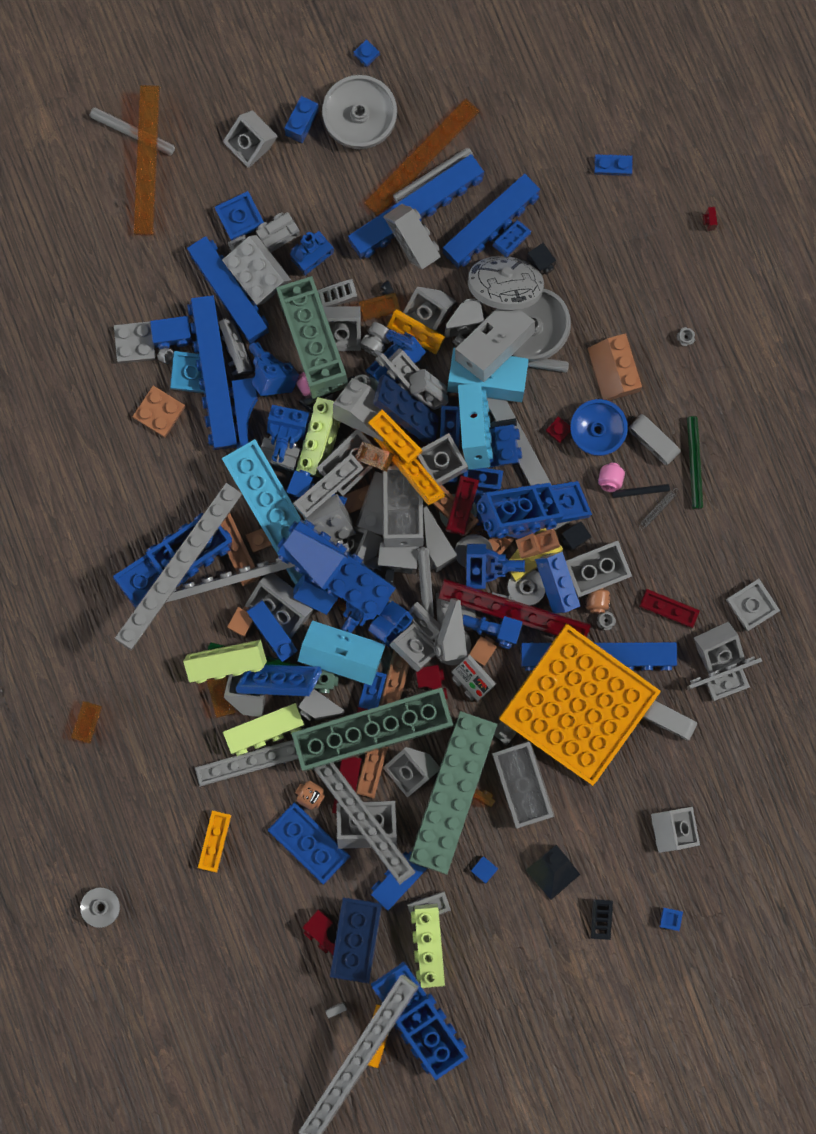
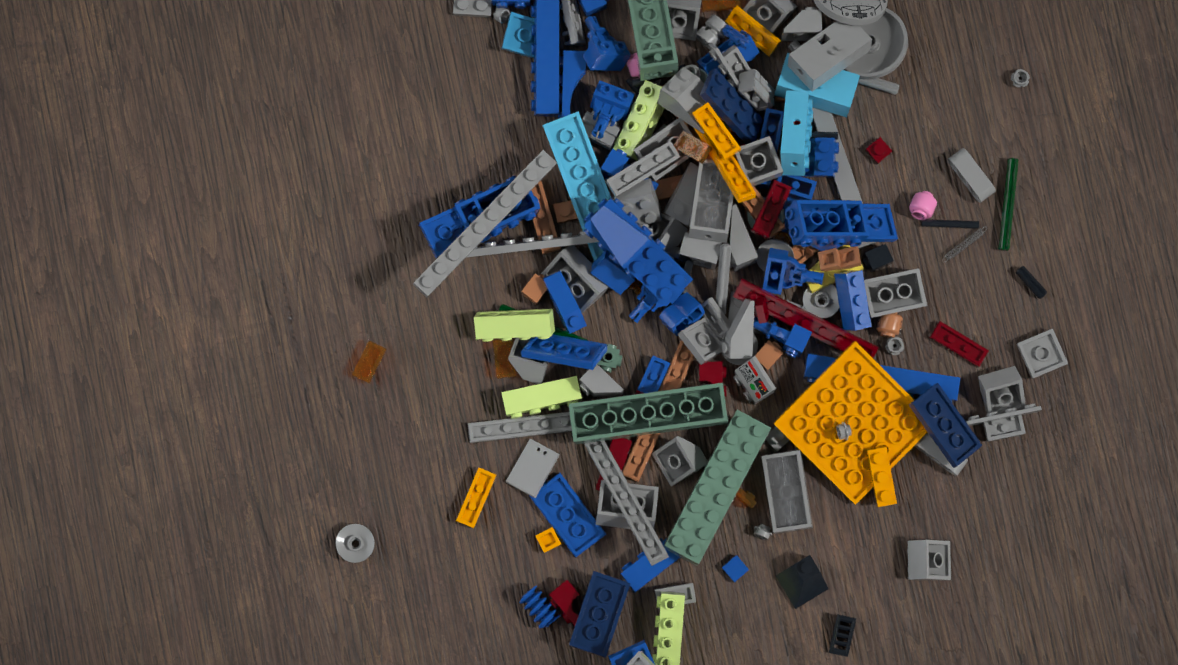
camera: 10 degrees right, 0 degrees up
(159, 411) = (486, 69): nougat plate -> none
(266, 802) = (532, 468): none -> light grey container
(293, 871) = (548, 540): none -> light orange plate
(294, 943) = (538, 608): none -> blue piece
(310, 795) = (576, 468): nougat head -> none
(341, 652) = (629, 334): medium azure brick -> none
(468, 608) = (761, 310): none -> dark red plate
(505, 828) = (762, 532): none -> light grey plate
(570, 715) = (843, 431): none -> light grey plate
(605, 416) = (919, 141): blue dish -> none
(614, 367) = (944, 98): nougat slope -> none
(615, 754) = (881, 476): none -> light orange plate
(669, 692) = (945, 425): none -> dark blue plate
(671, 919) = (910, 646): blue plate -> none
(730, 536) = (1031, 282): none -> black axle

